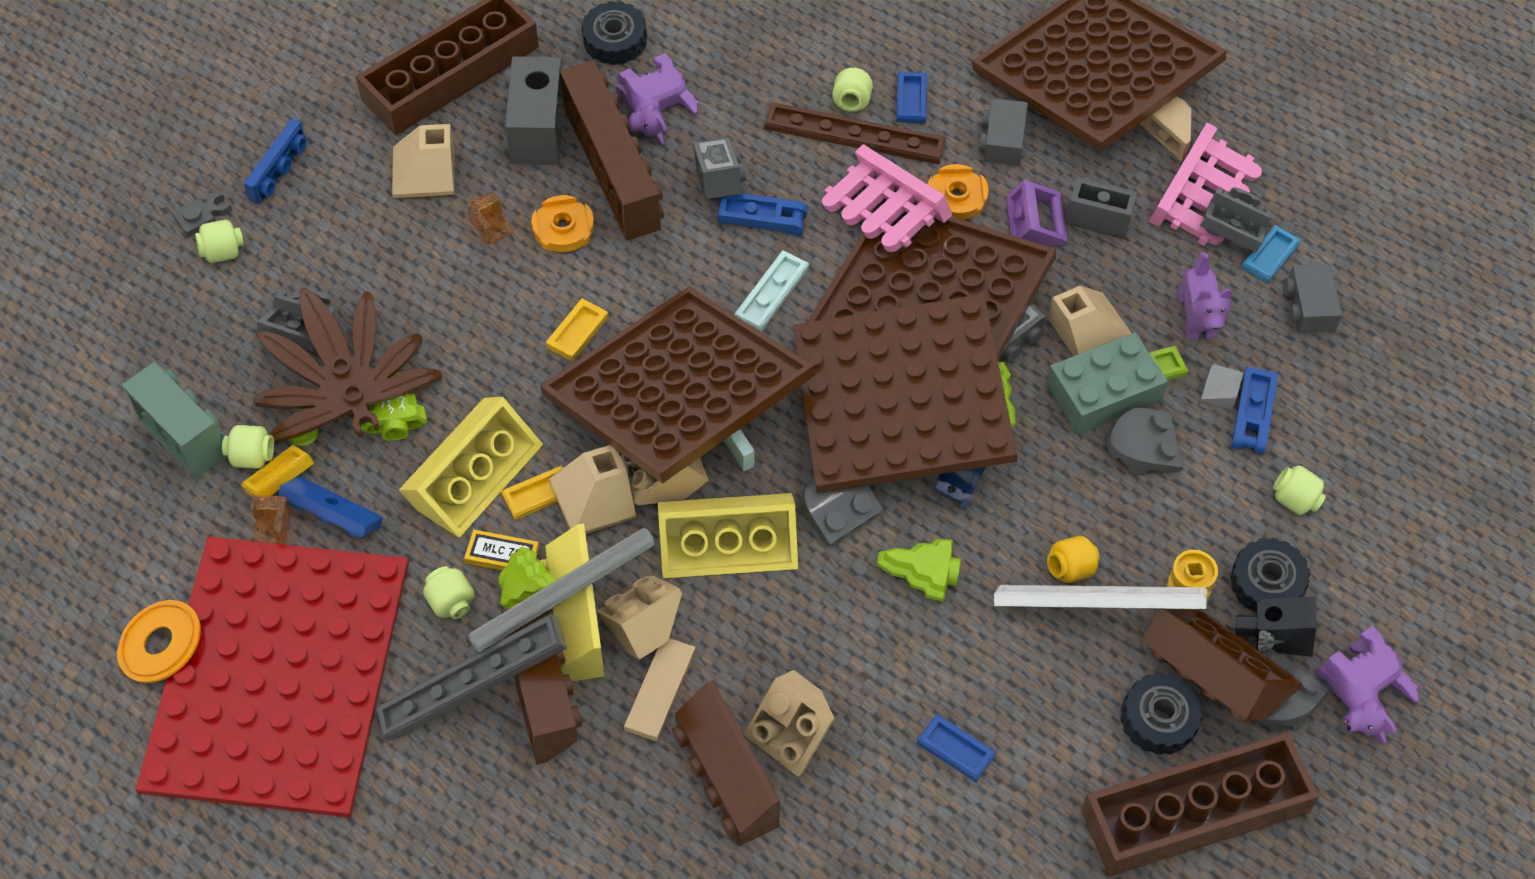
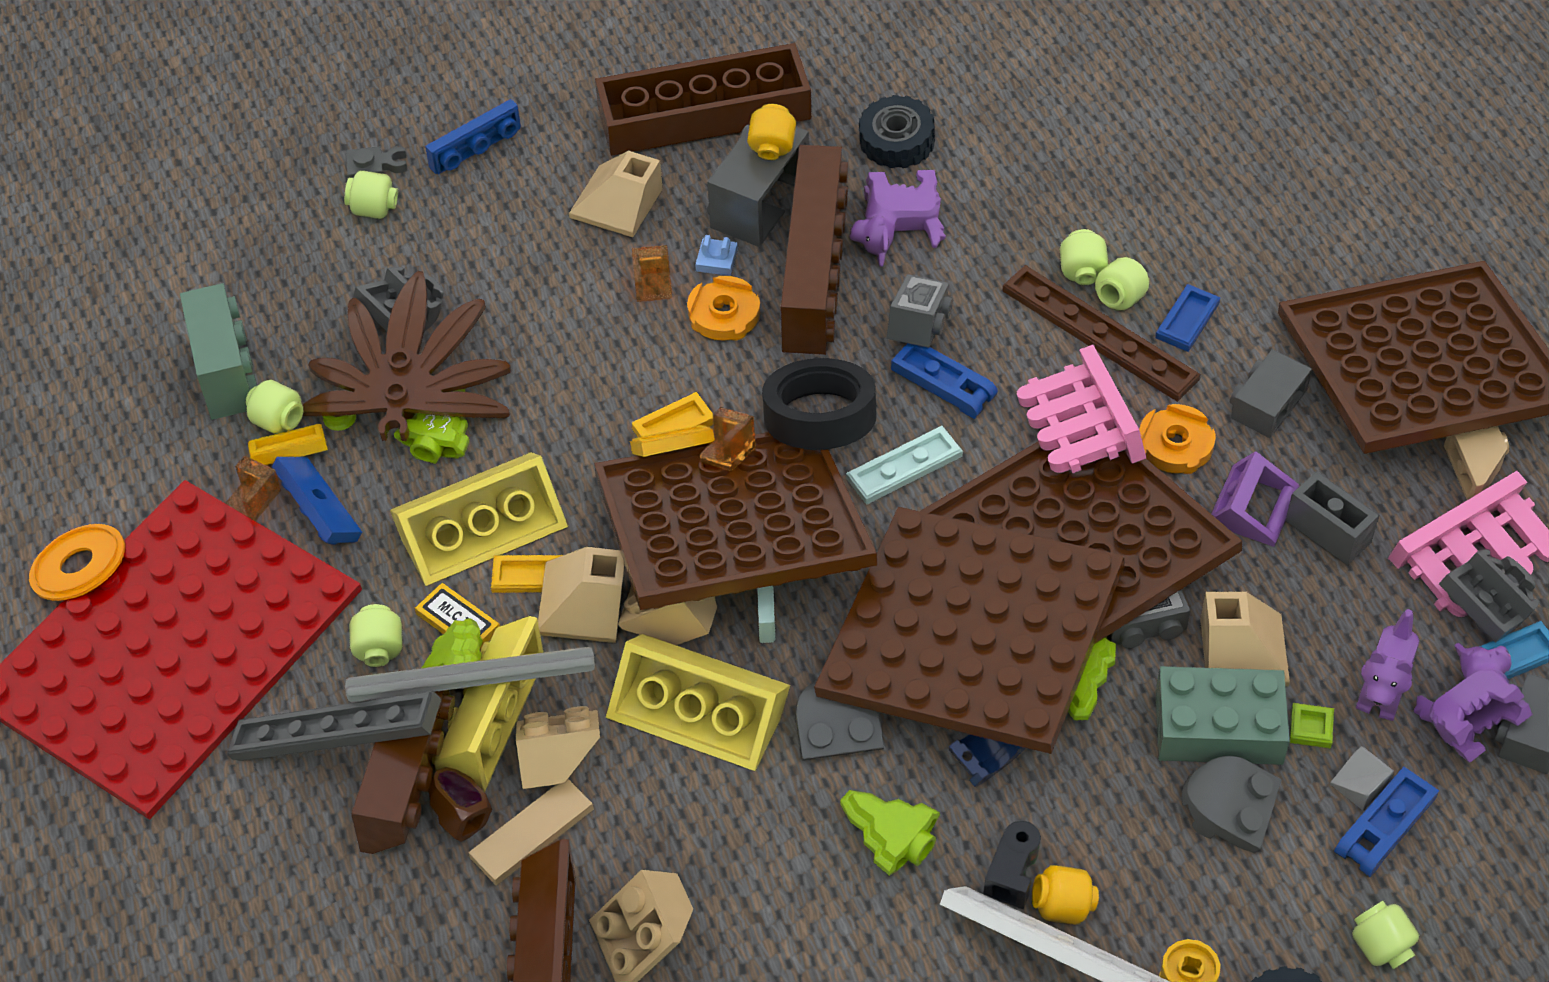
camera: 30 degrees right, 5 degrees down
(531, 185) = (716, 256): none -> light blue tile
(537, 67) = (771, 131): none -> yellow head
(589, 343) = (672, 440): none -> yellow tile
(596, 692) = (458, 803): none -> reddish brown rock
(638, 324) = (733, 439): none -> clear orange panel
(690, 293) = (824, 429): none -> black tyre
(813, 79) = (1083, 256): none -> yellowish green head
(1023, 554) = (1014, 854): none -> black leg
(1271, 300) = (1476, 701): none -> medium lavender animal

